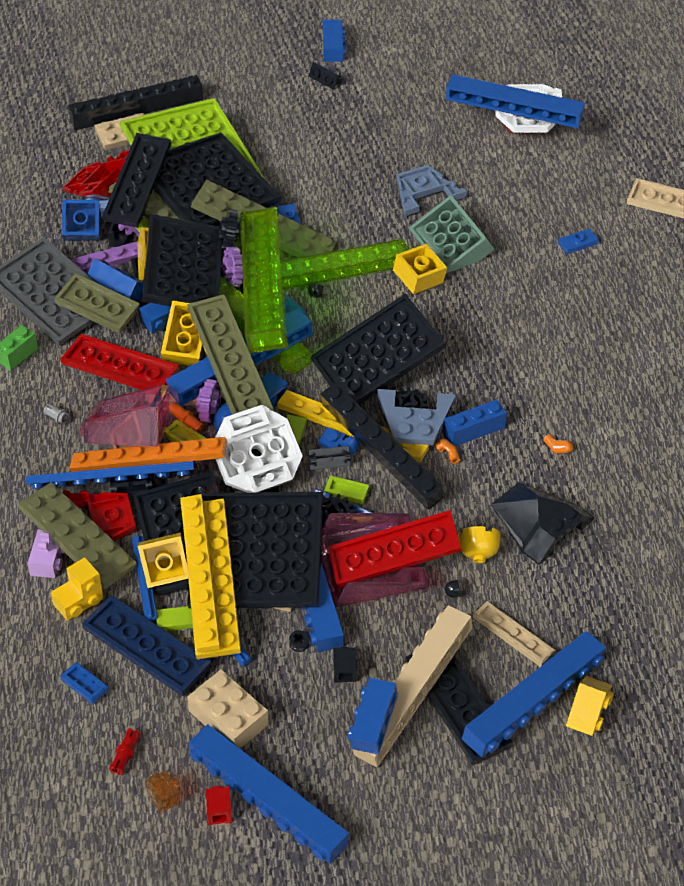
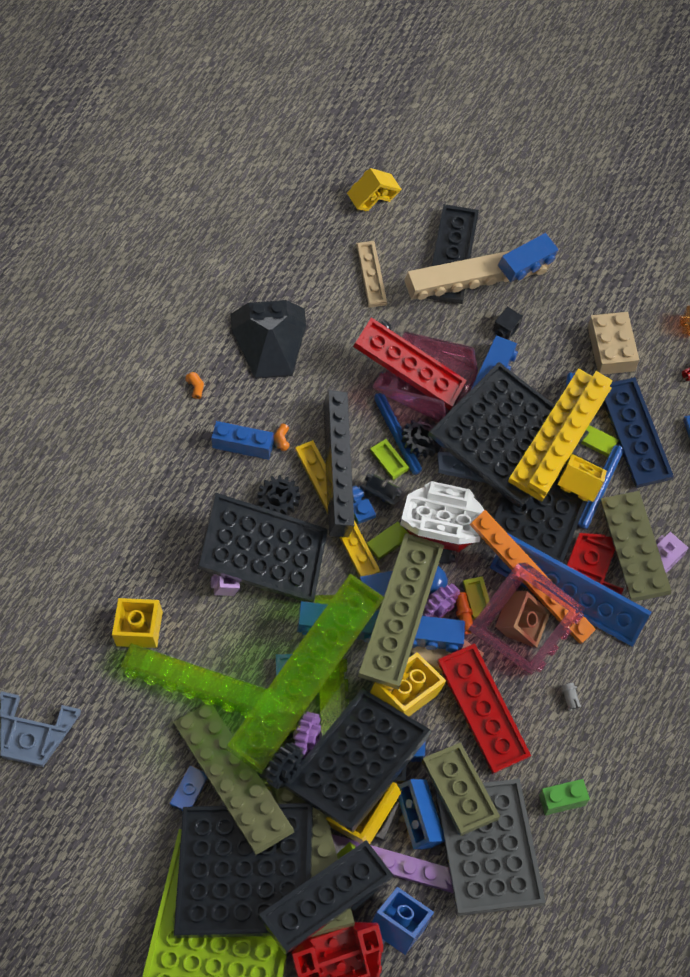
camera: 145 degrees left, 15 degrees up
(80, 591) = (662, 500): yellow brick -> none
(218, 805) = (662, 289): red brick -> none
(268, 794) = (626, 276): blue brick -> none
(299, 634) = (526, 360): black bush -> none
(315, 289) = (244, 673): black hinge -> none
(414, 424) = (292, 466): sand blue wing -> none
(451, 235) = (69, 647): sand green slope -> none
(479, 543) = (336, 337): yellow cylinder -> none
(533, 694) = (402, 217): blue brick -> none

